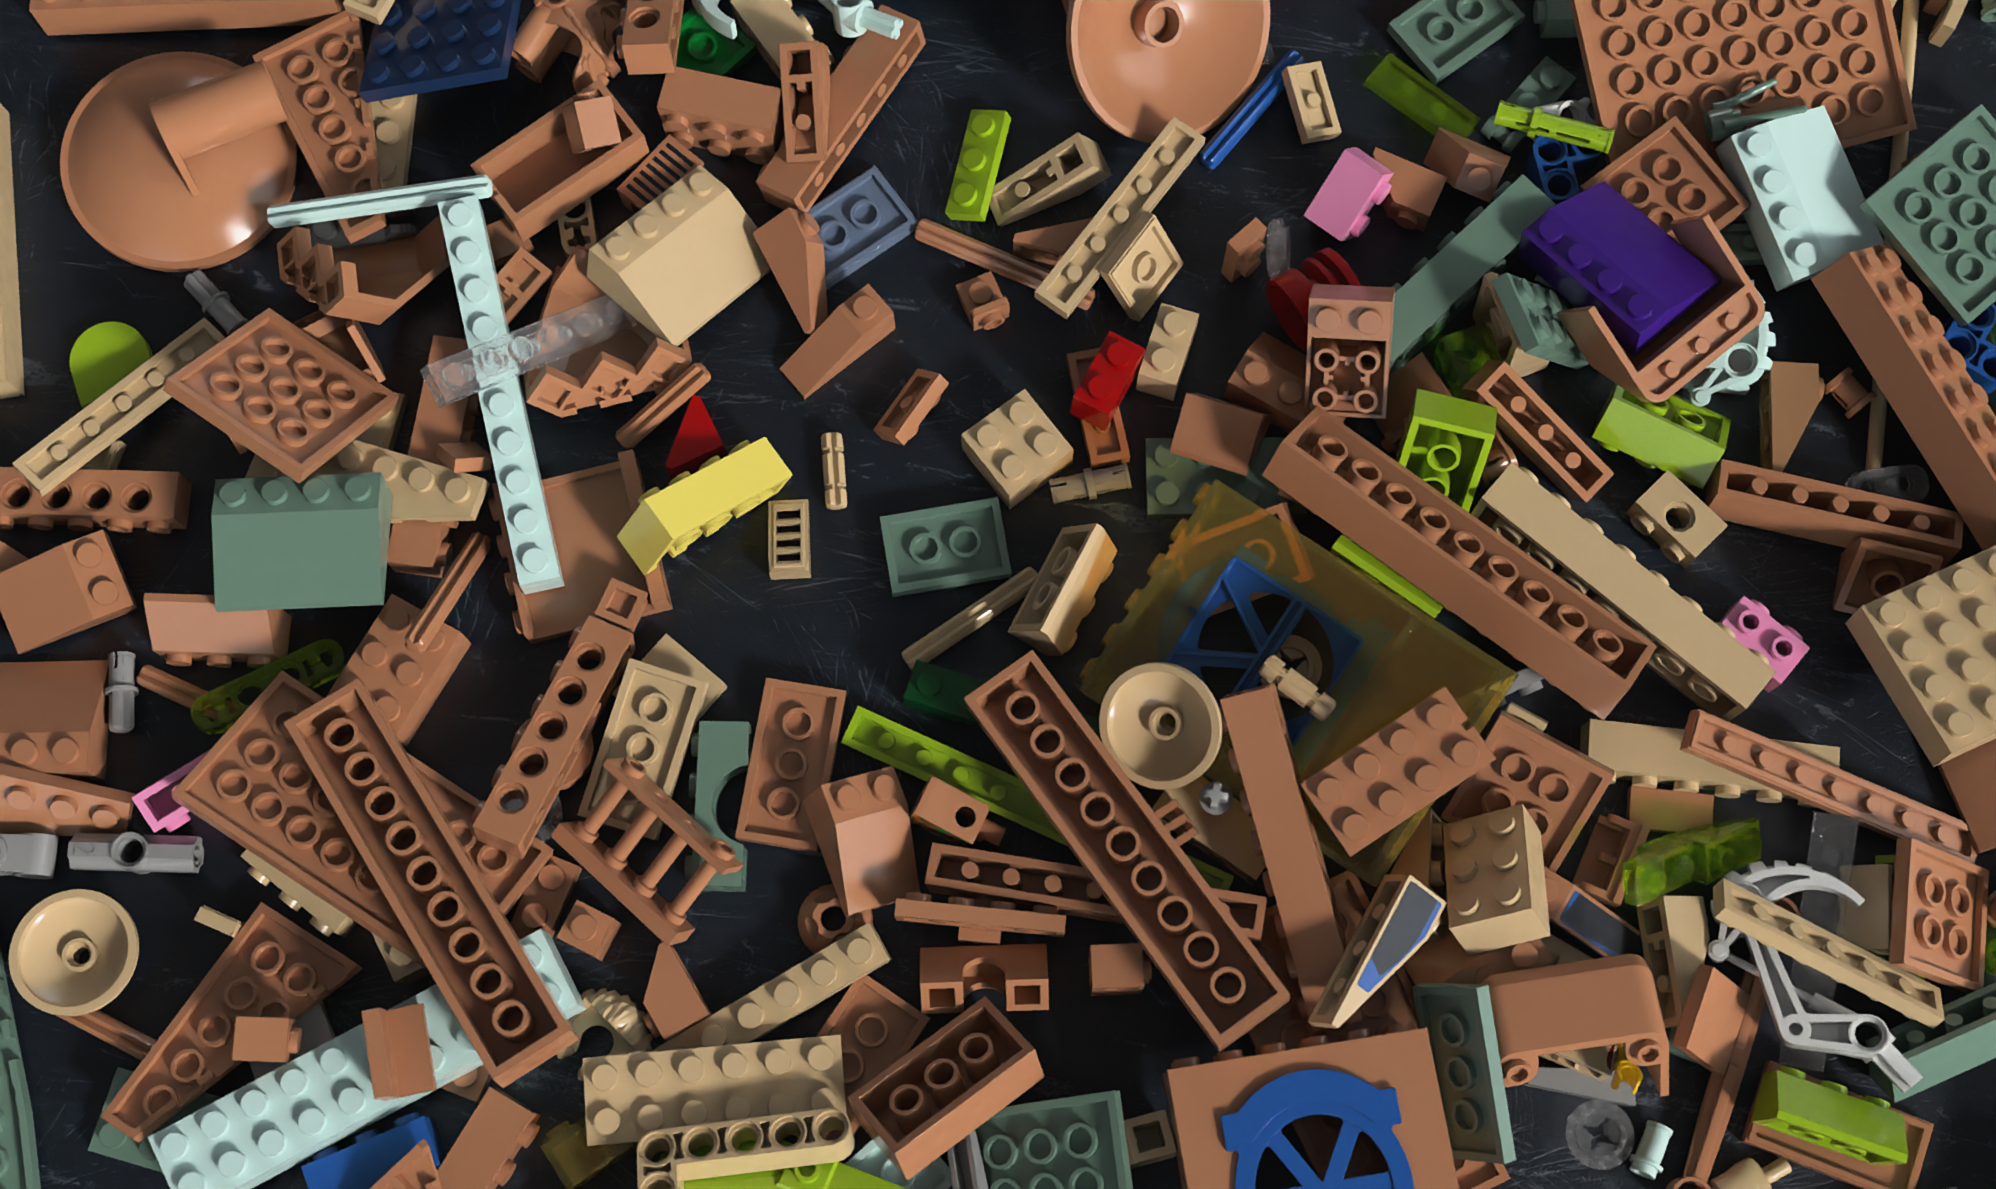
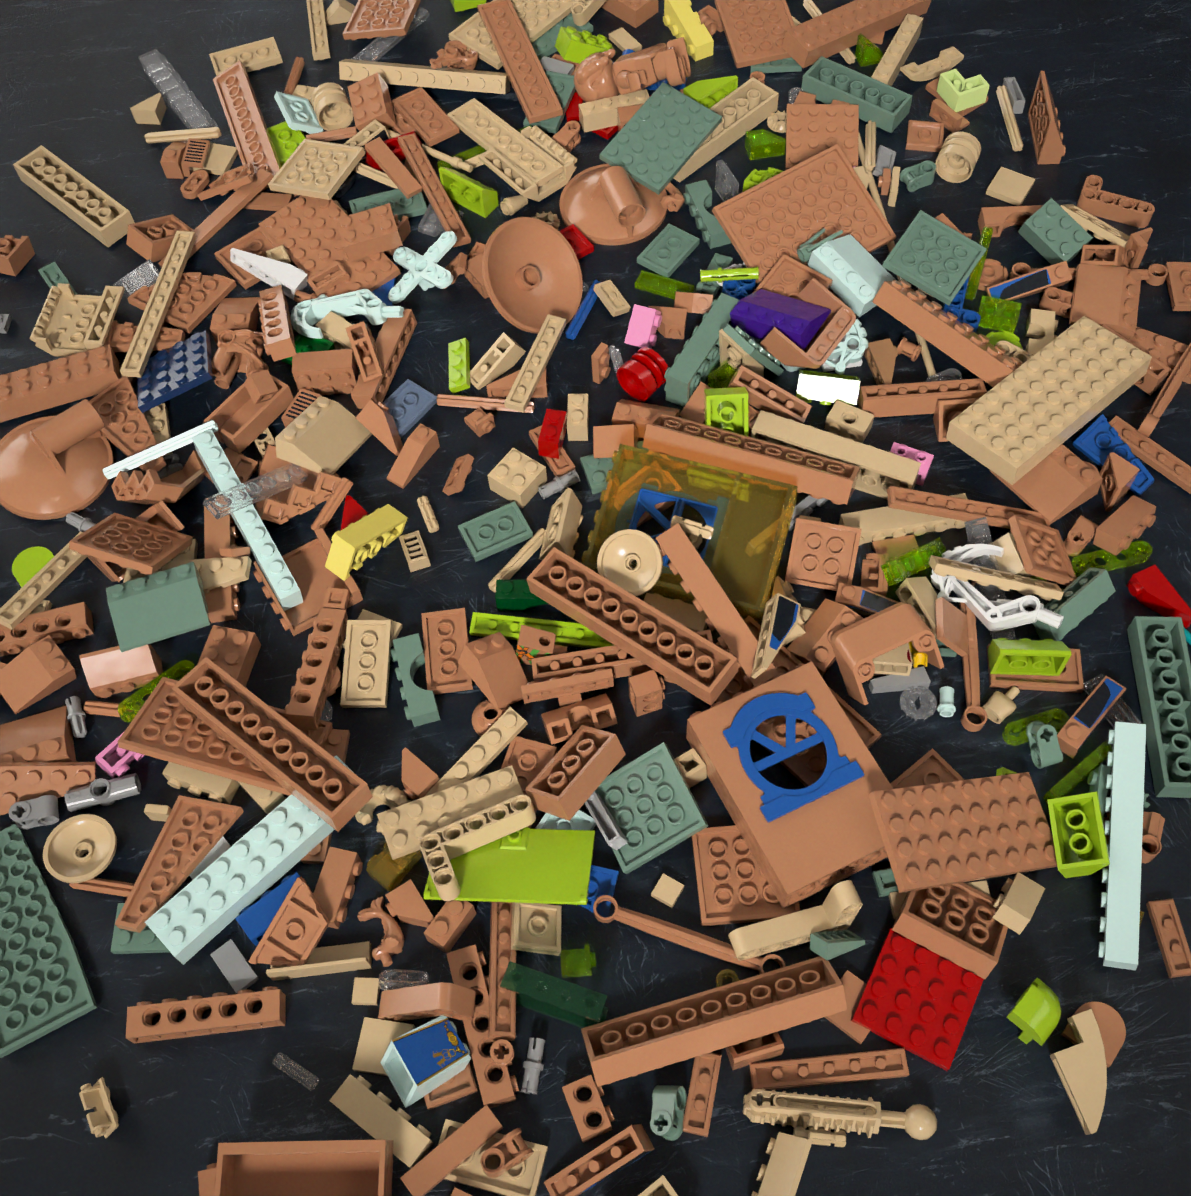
camera: 15 degrees left, 15 degrees down
(266, 1039) = (199, 853): nougat brick -> none
(399, 1051) = (276, 833): nougat panel -> none
(447, 593) = (242, 617): nougat axle -> none
(589, 930) = (362, 757): nougat brick -> none
(610, 864) = (384, 729): nougat fence -> none
(1141, 266) = (553, 382): tan tile -> none
(1216, 798) = (669, 593): light grey axle -> none
(1349, 350) = (666, 383): nougat slope -> none
(1397, 771) = (754, 546): nougat piece -> none
(1467, 1069) = (840, 676): sand green plate -> none
(1495, 880) = (821, 592): tan brick -> none

